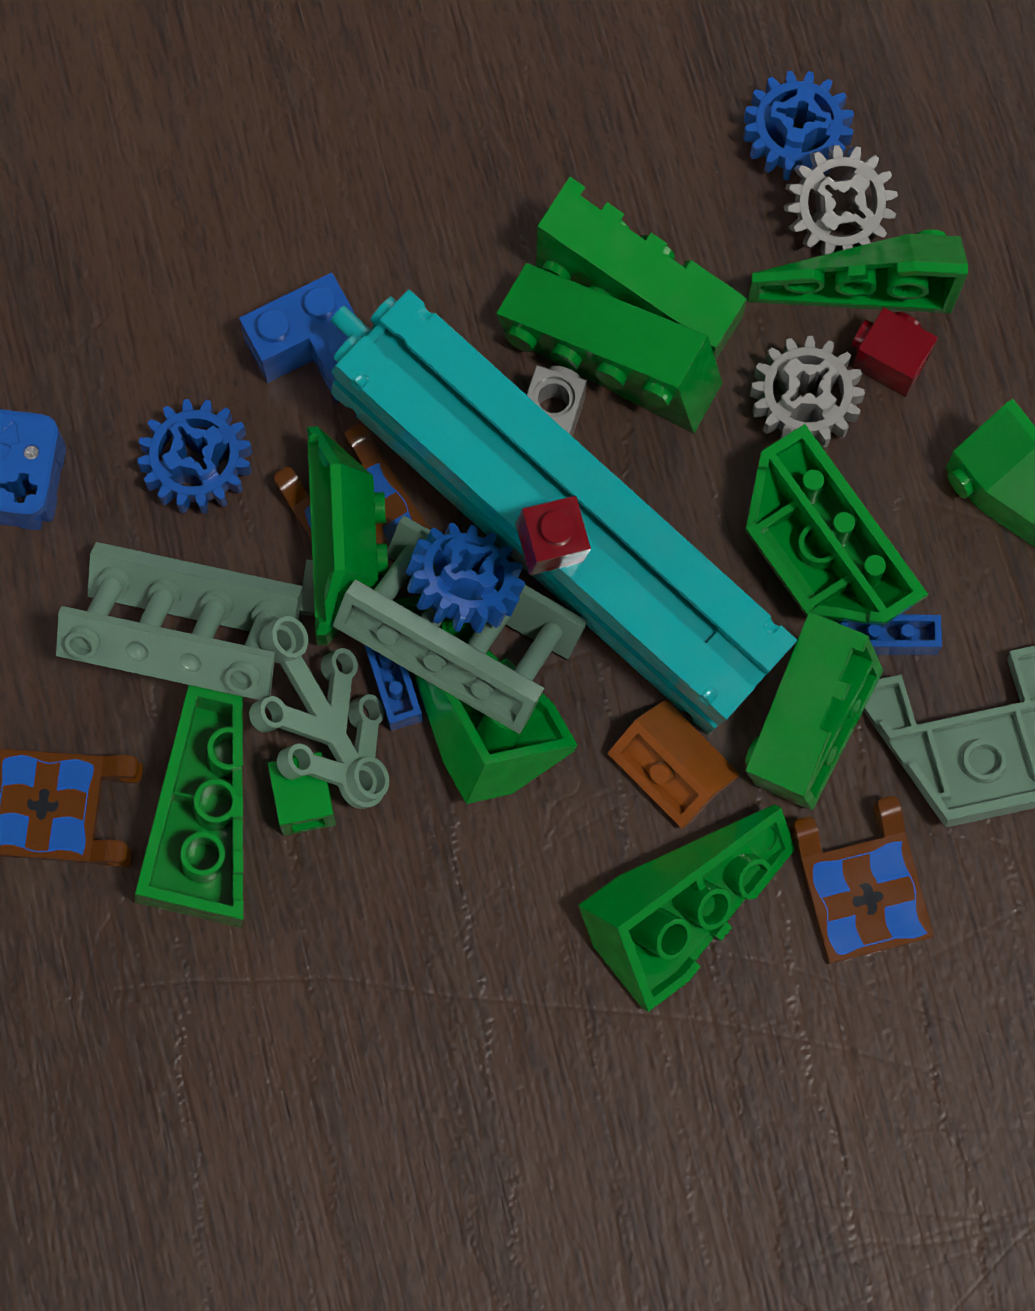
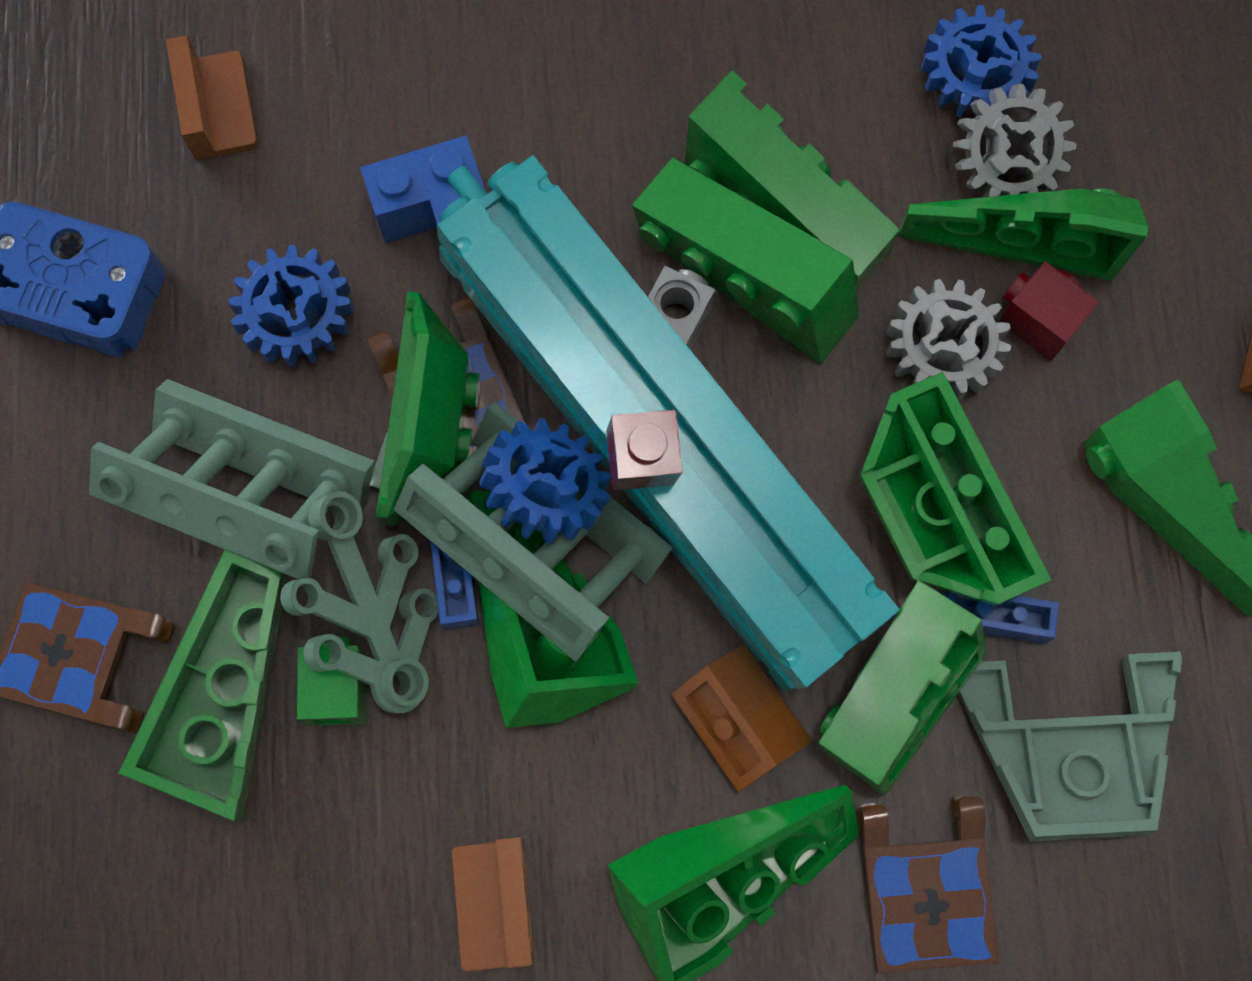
camera: 10 degrees right, 0 degrees up
(79, 272) = (211, 100): none -> dark orange panel
(481, 961) = (493, 905): none -> dark orange panel

